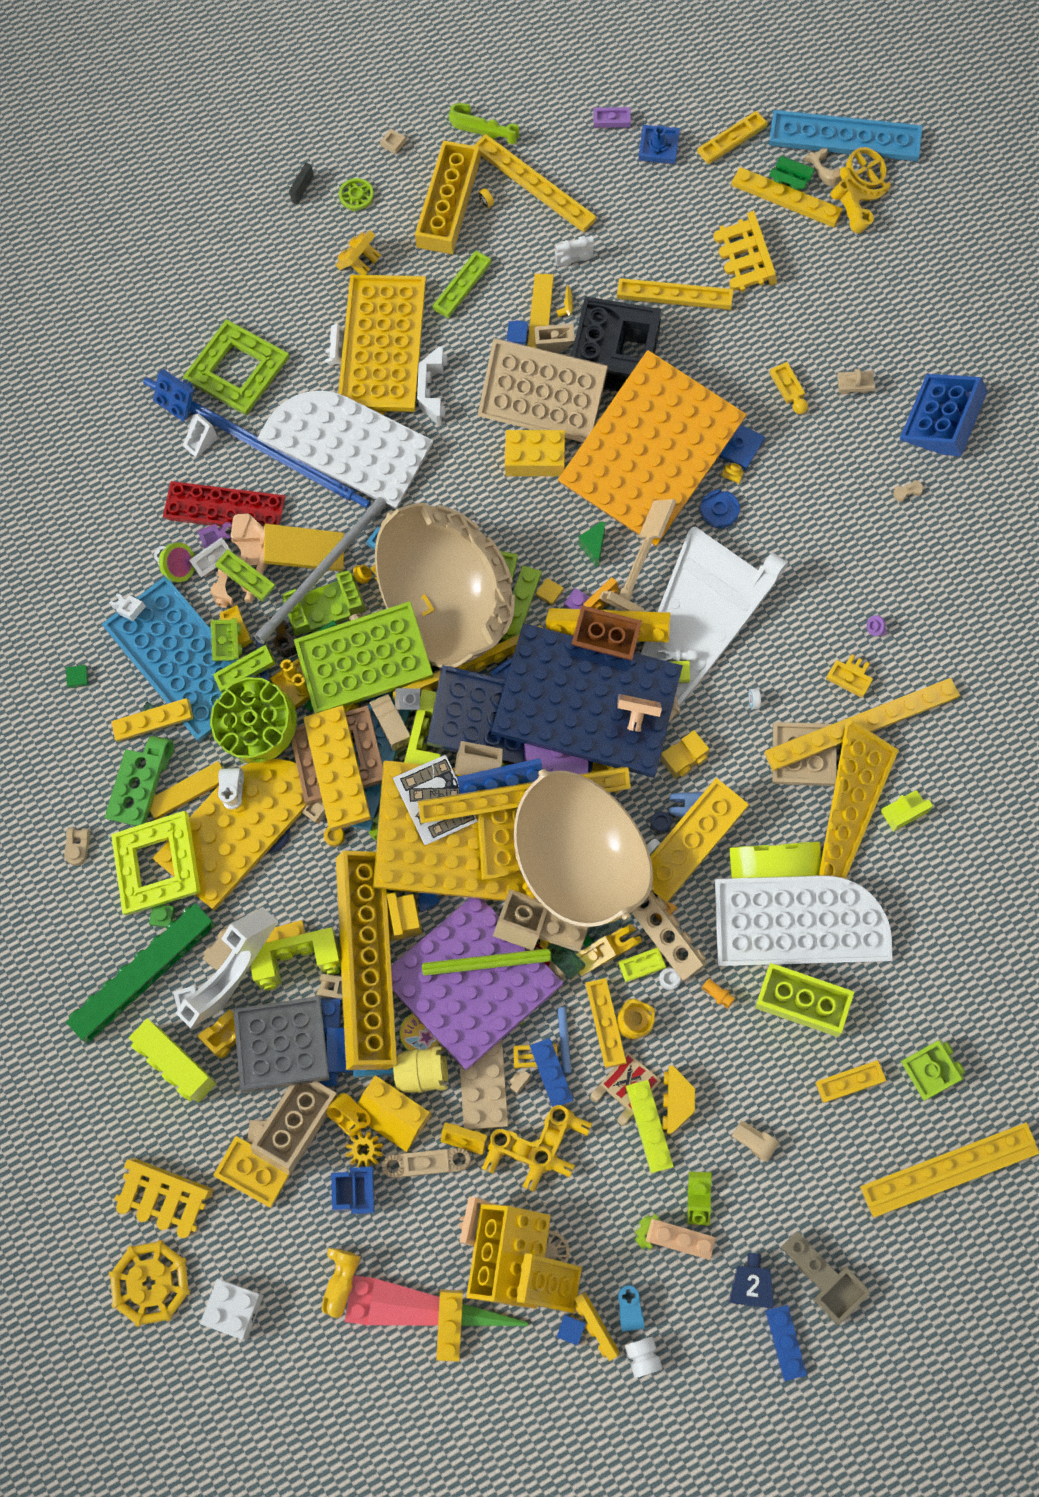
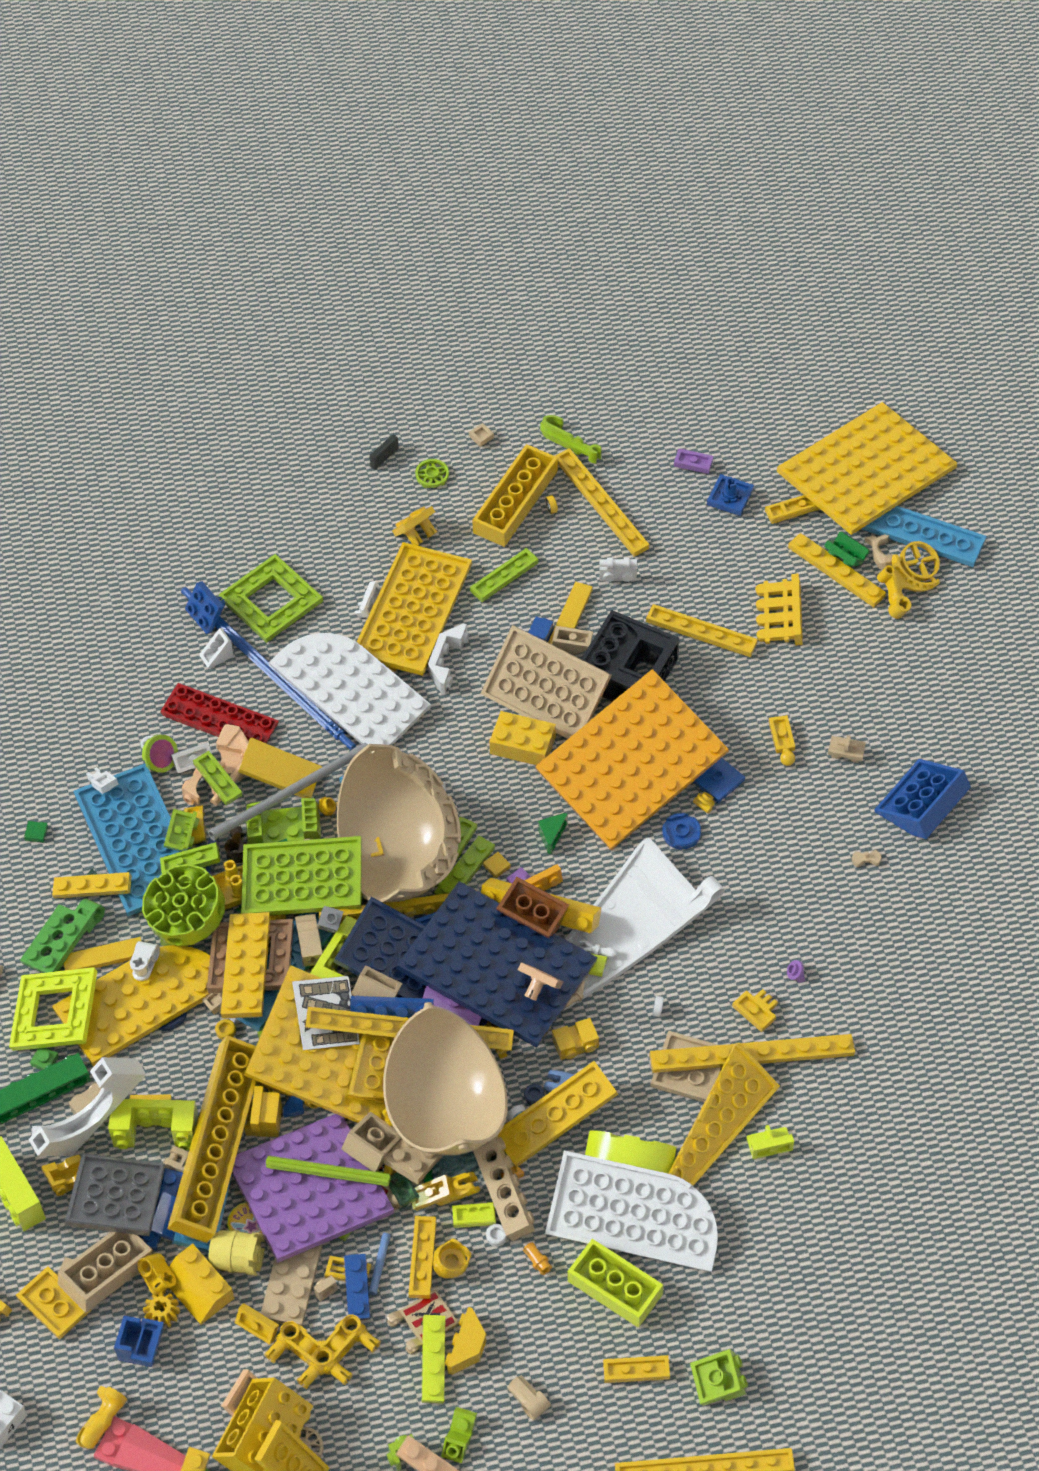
camera: 10 degrees right, 15 degrees down
(212, 534) = (199, 737): medium lavender plate -> none
(426, 1163) = (215, 1337): tan plate -> none
(568, 309) = (598, 615): yellow bar -> none
(652, 528) = (561, 887): tan piece -> none
(784, 83) = (866, 468): none -> yellow plate

